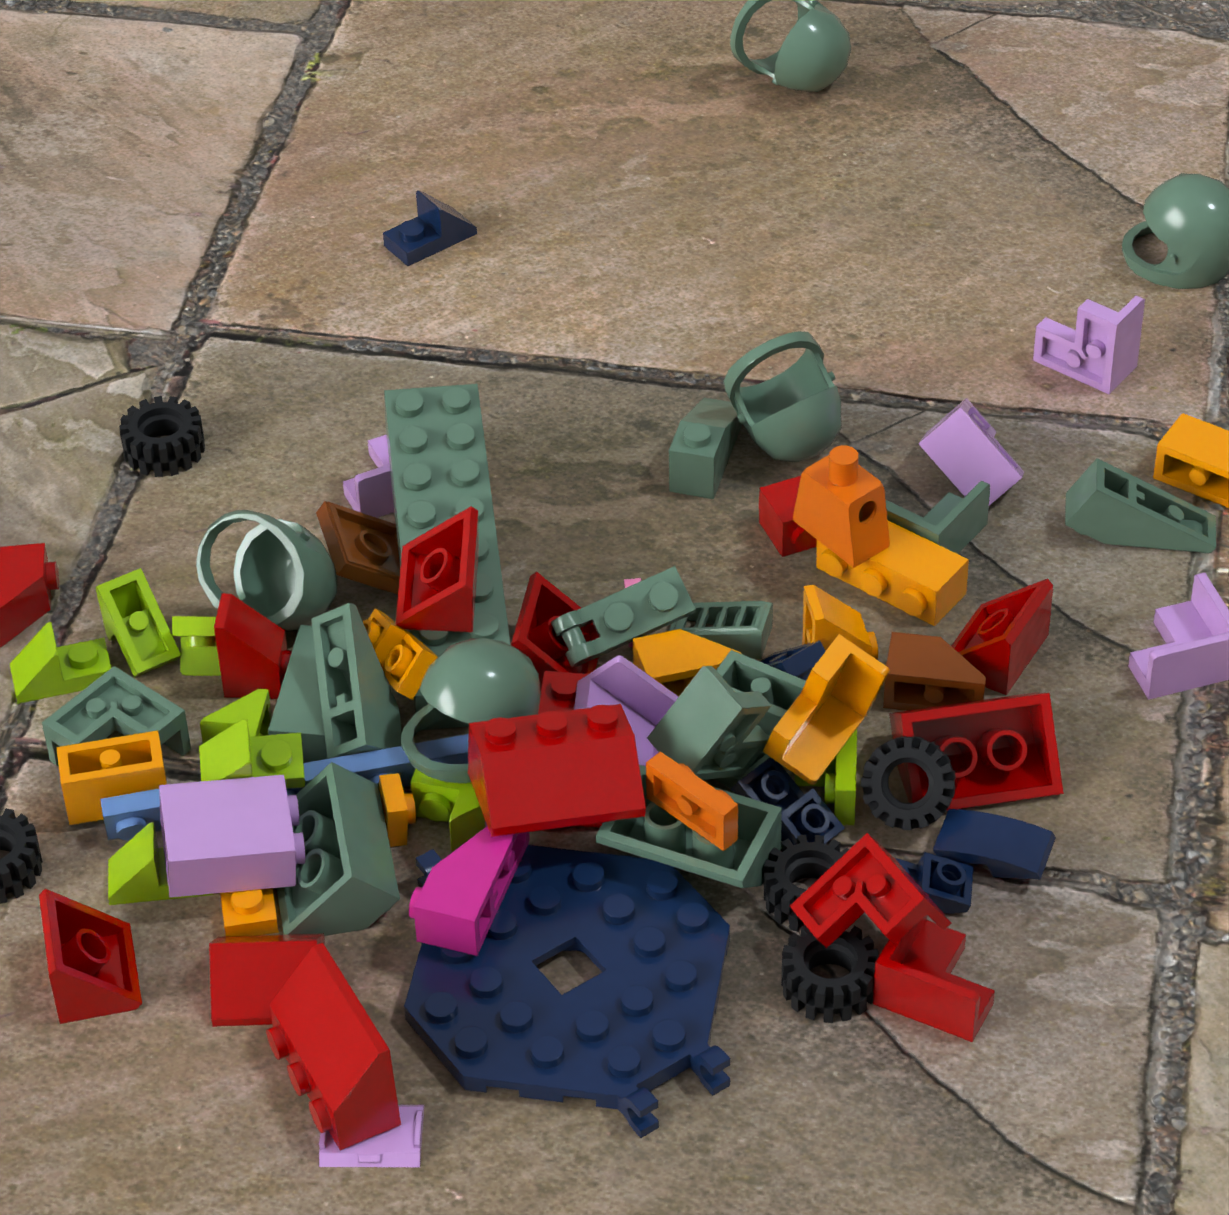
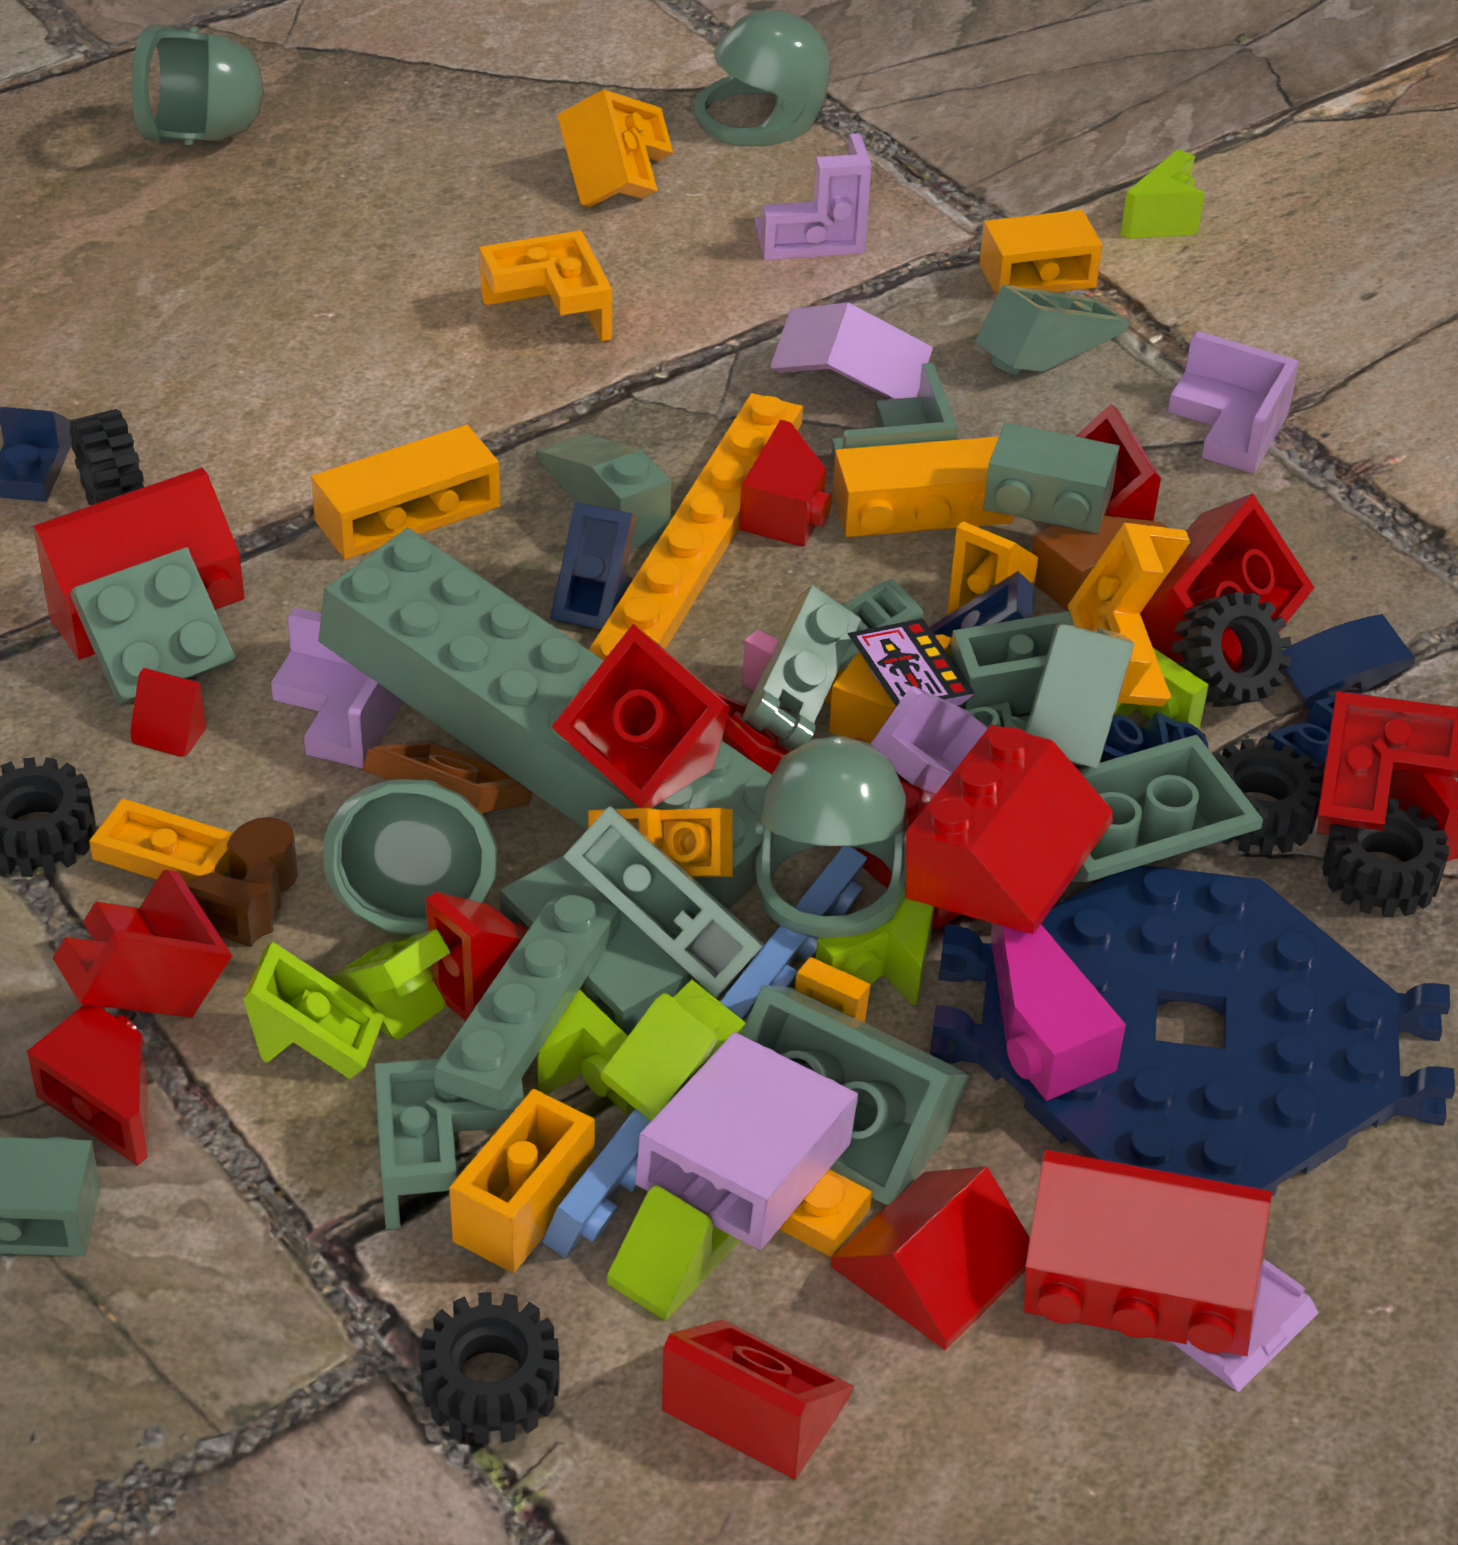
camera: 50 degrees left, 0 degrees up
(52, 671) = (261, 1125): lime slope -> none
(101, 549) = (146, 956): none -> red panel
(185, 542) = (260, 868): none -> reddish brown leg
(197, 492) = (156, 840): none -> light orange plate
(220, 685) = (527, 999): none -> sand green plate
(294, 424) = (167, 713): none -> red slope
(339, 368) = (152, 620): none -> sand green plate
(374, 327) = (131, 532): none -> red slope
(435, 259) = (105, 456): none -> black tyre
(584, 375) = (405, 487): none -> light orange brick
(614, 488) = (593, 566): none -> dark blue slope
(679, 519) = (697, 532): none -> light orange plate
(682, 650) = (911, 656): none -> piece
(692, 800) = (1151, 772): orange plate -> none
(793, 412) = (668, 395): sand green piece -> none
(843, 506) = (872, 442): orange torso -> none
(854, 288) = (545, 266): none -> light orange panel
(934, 600) = (1051, 477): none -> sand green brick
(1015, 217) = (611, 145): none -> light orange panel

